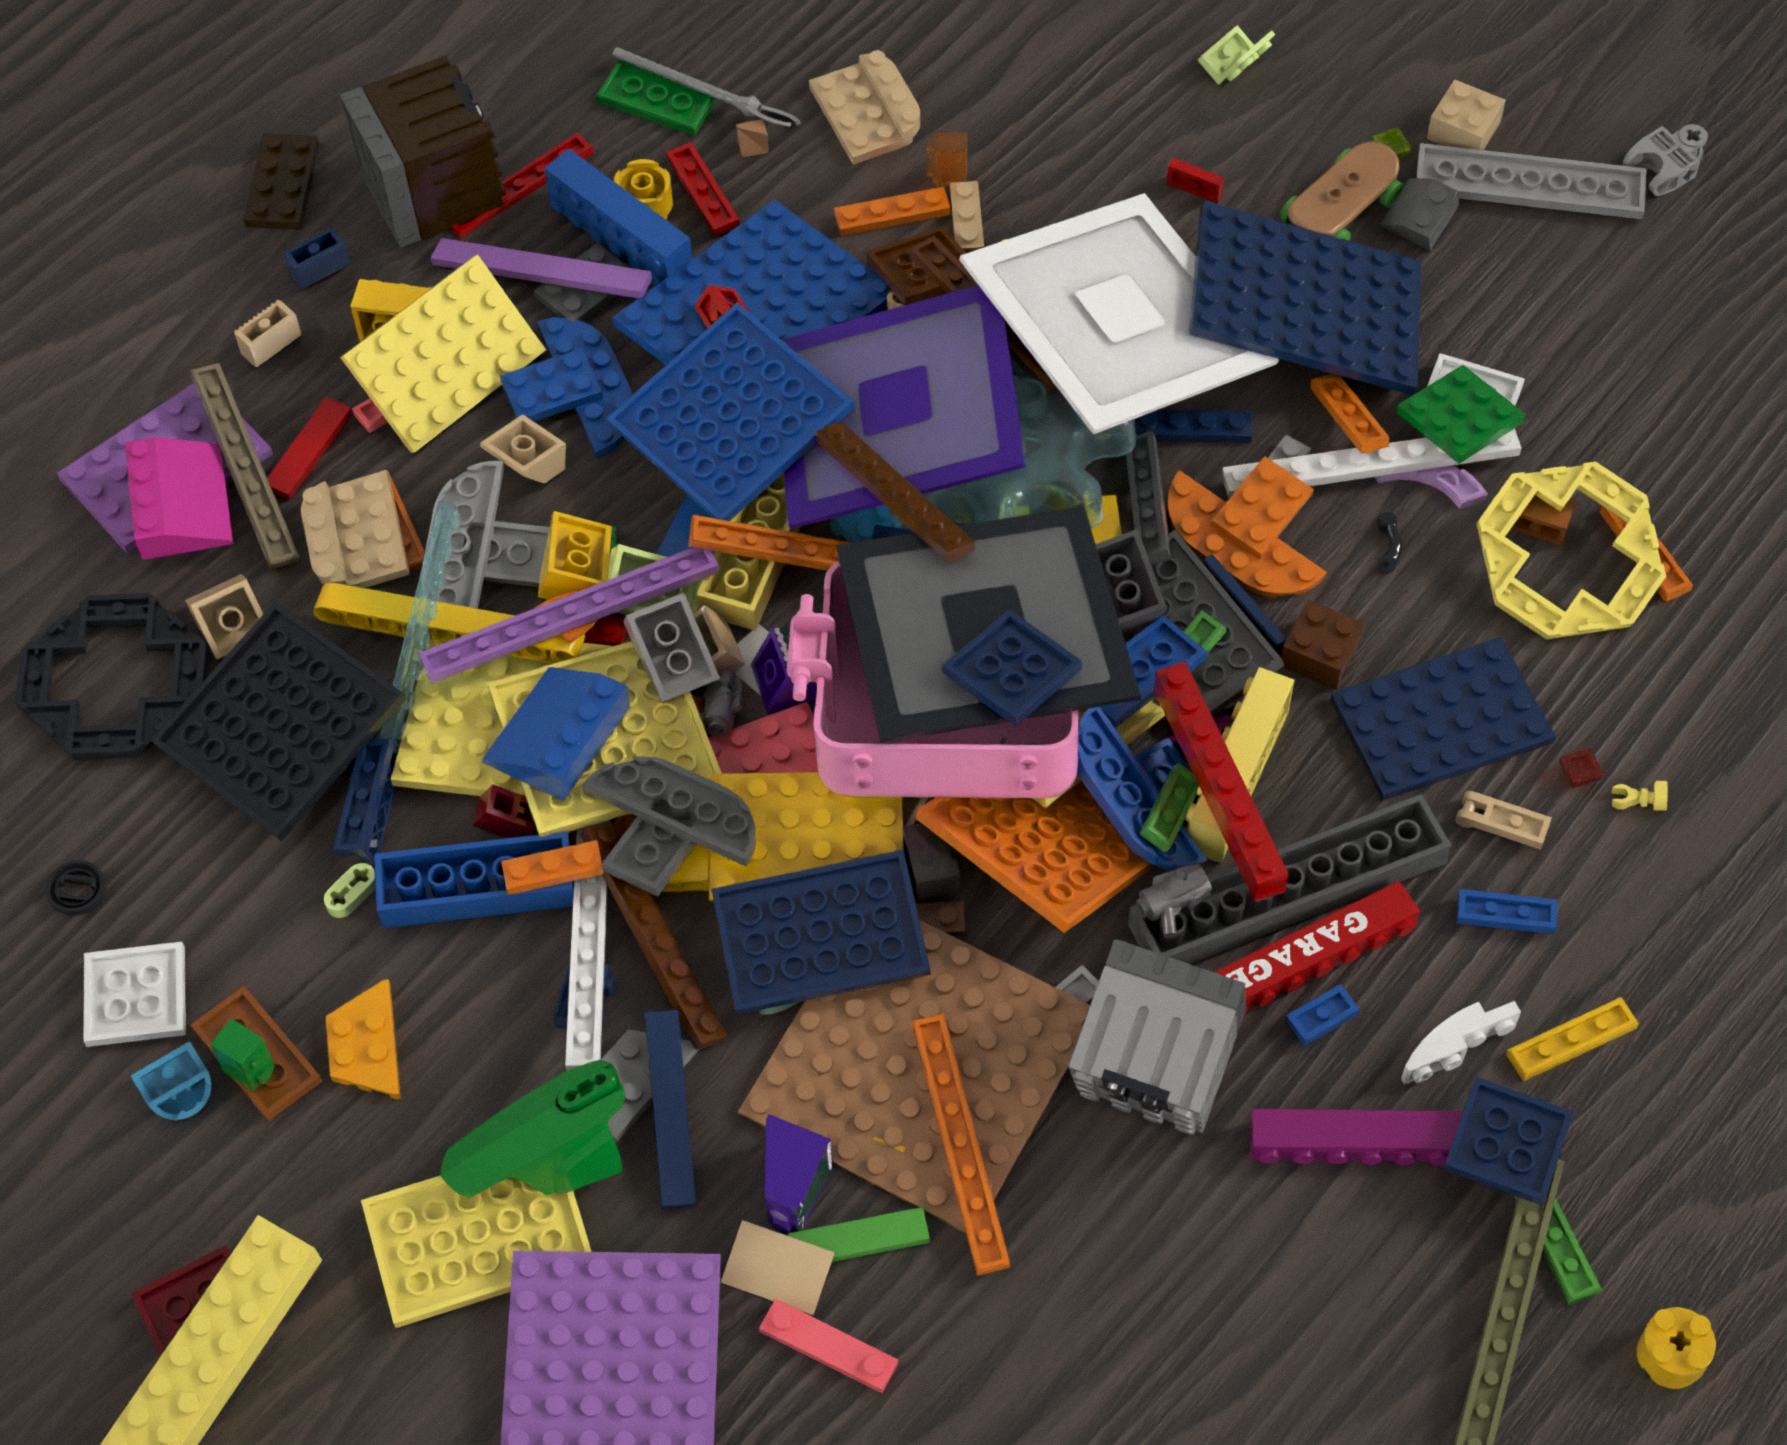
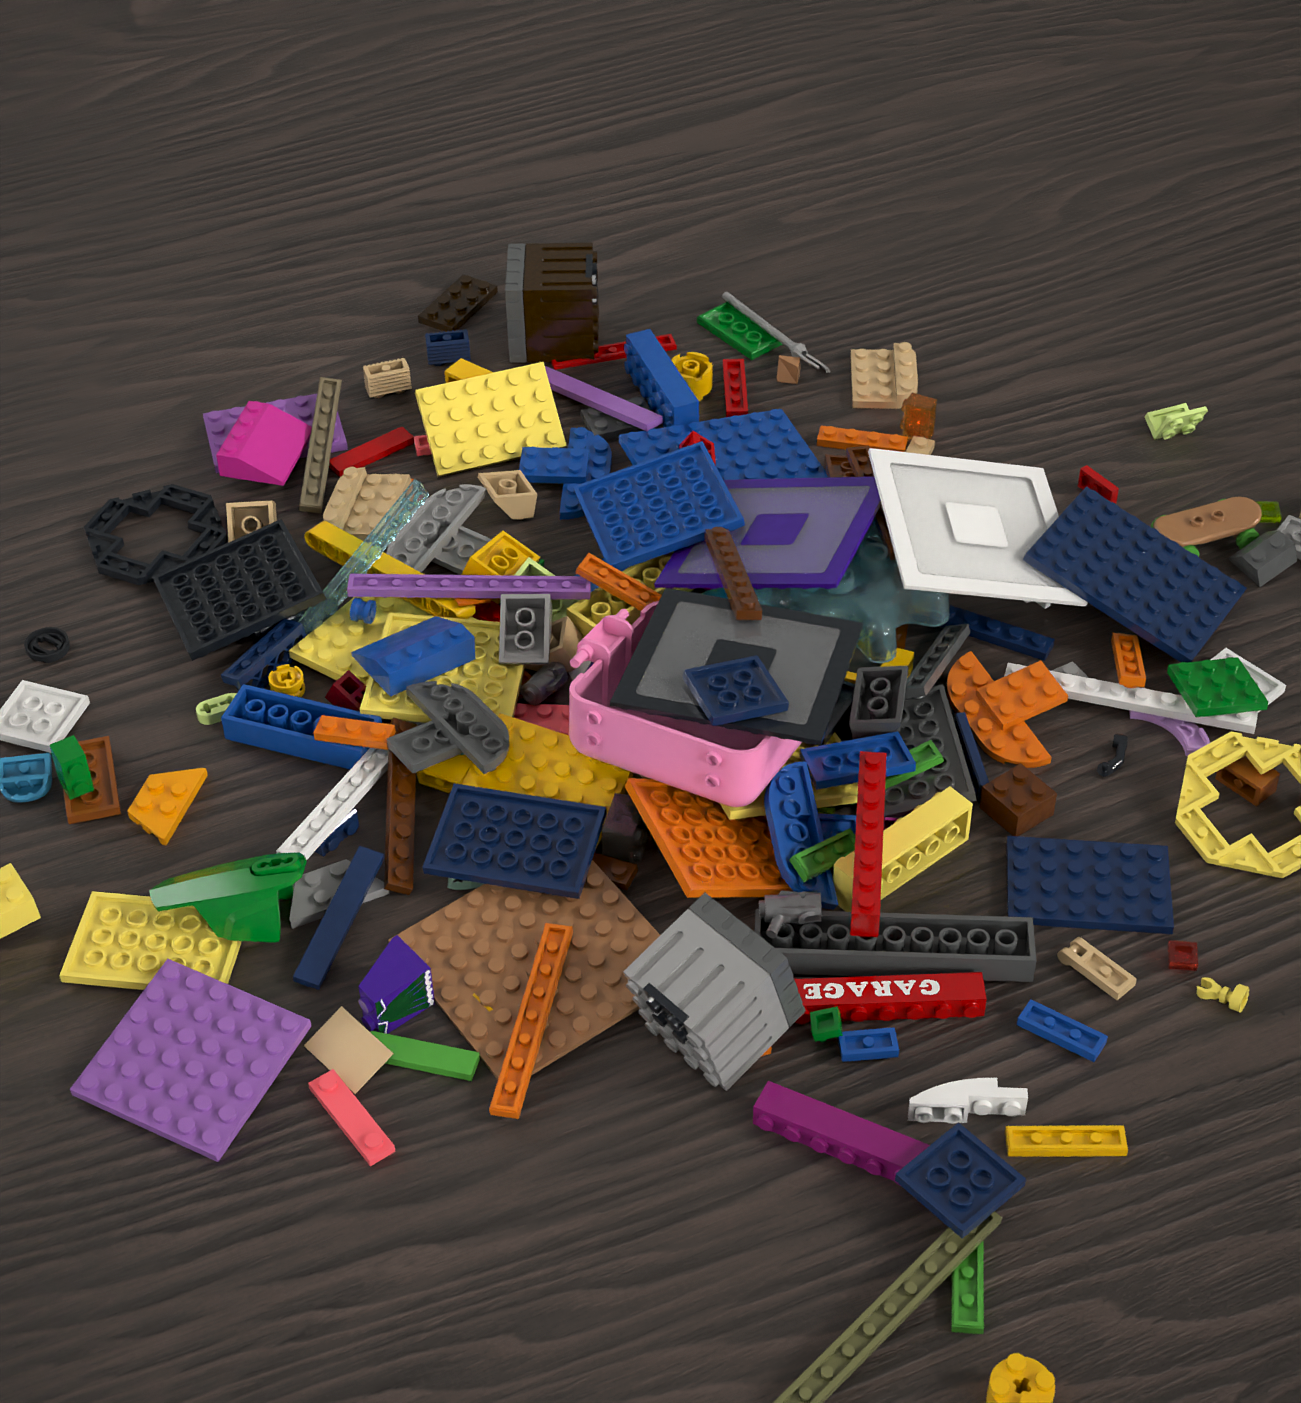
camera: 25 degrees right, 15 degrees down
(412, 823) = (287, 680): none -> yellow wheel
(454, 692) = (363, 610): none -> blue wheel
(1271, 1012) = (826, 1024): none -> green tile

